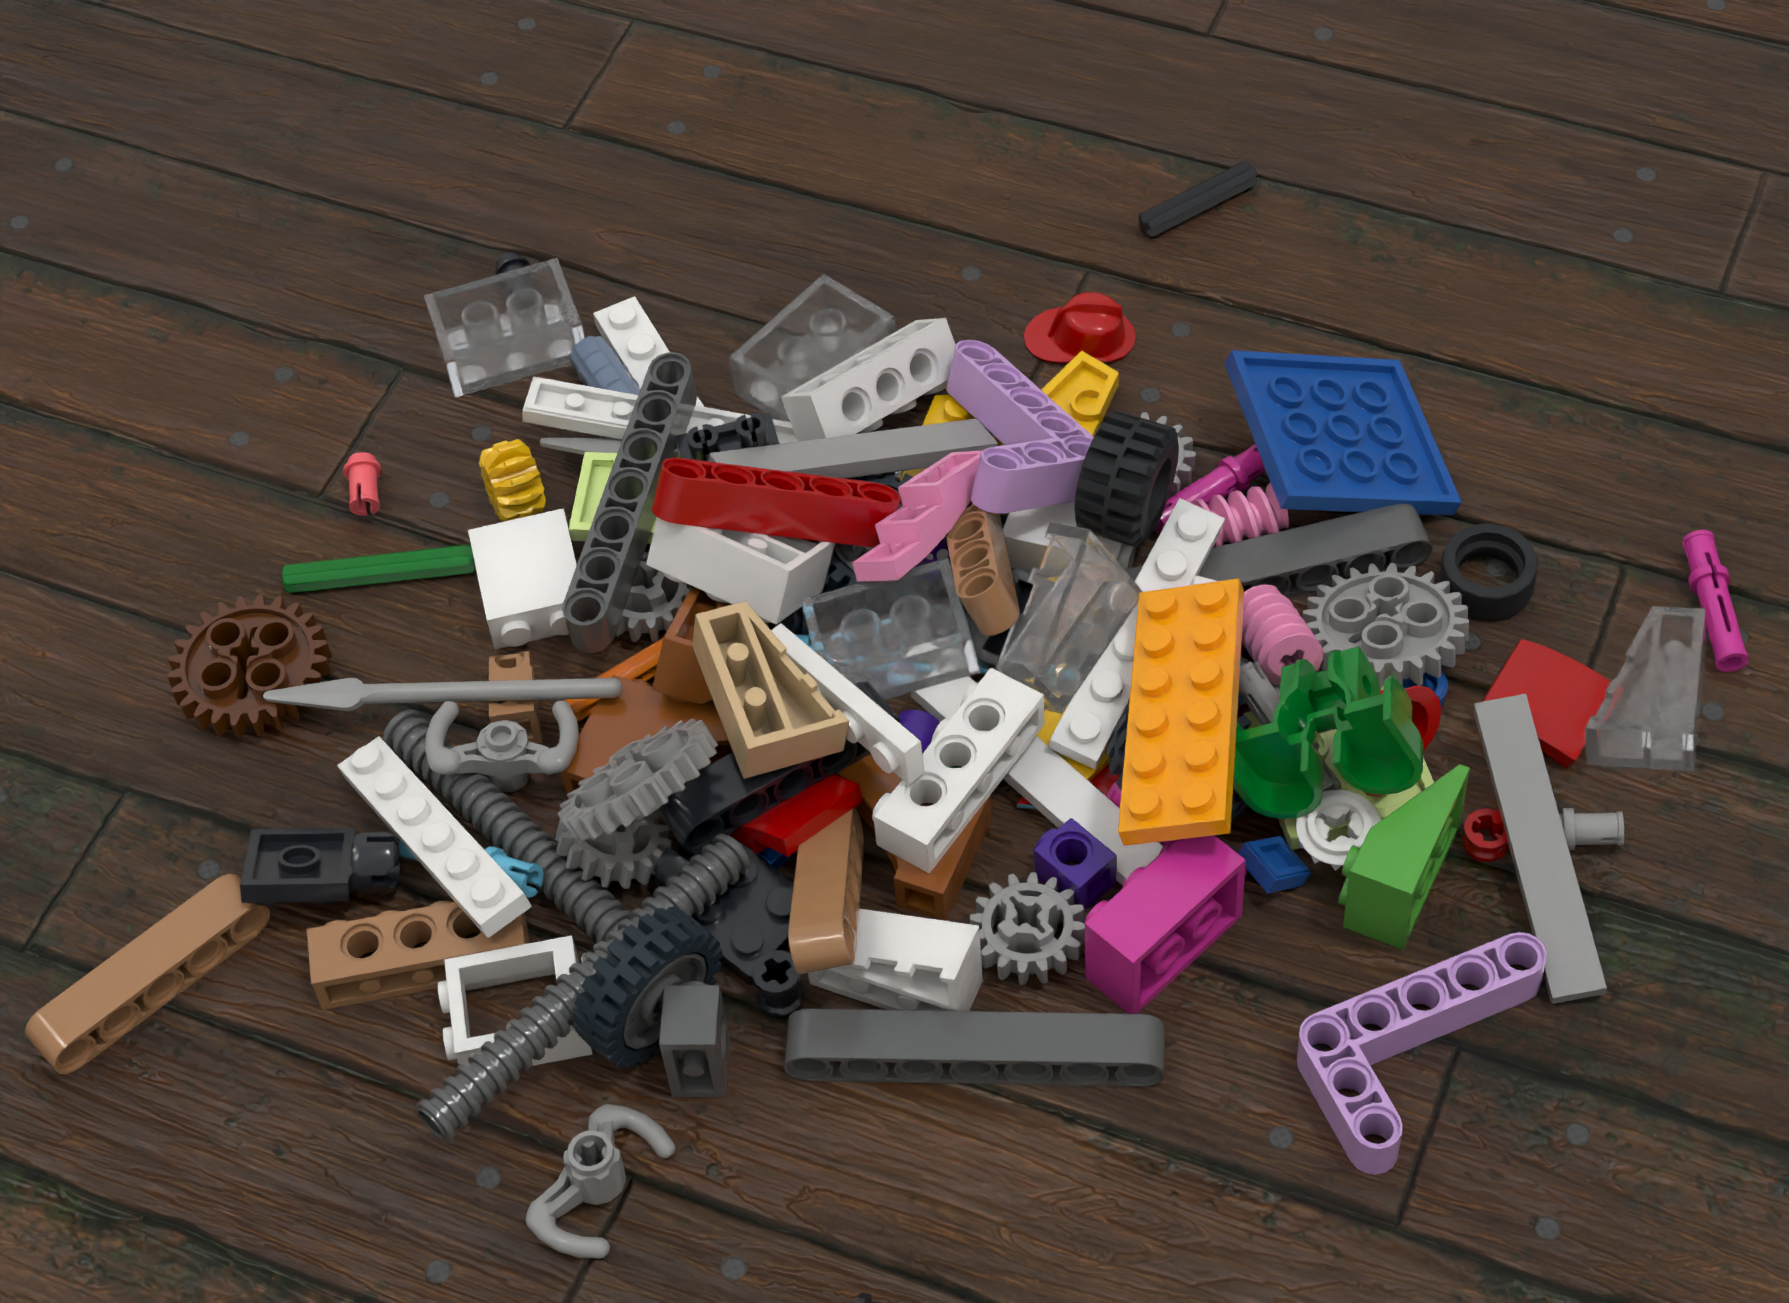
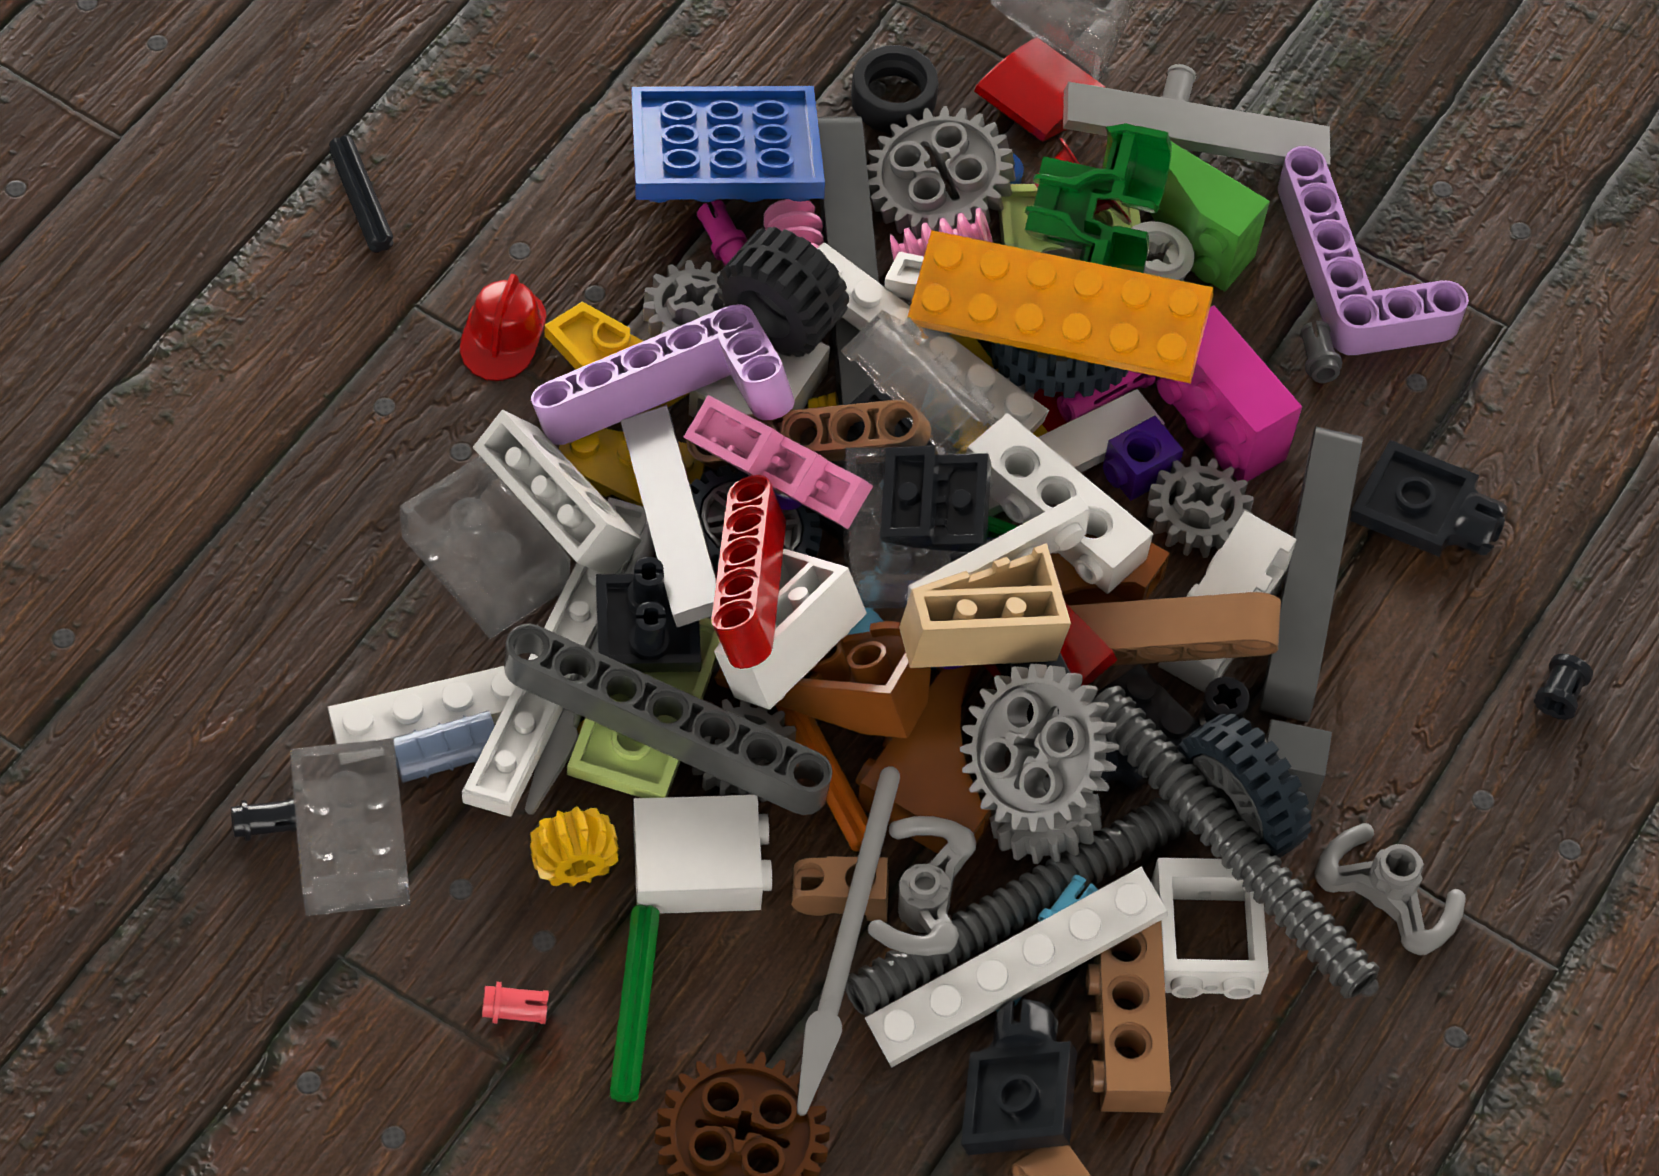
camera: 90 degrees left, 5 degrees up
(903, 639) = (935, 499): none -> black slope
(1095, 1153) = (1428, 503): none -> black plate
(1274, 1022) = (1322, 361): none -> dark grey pin

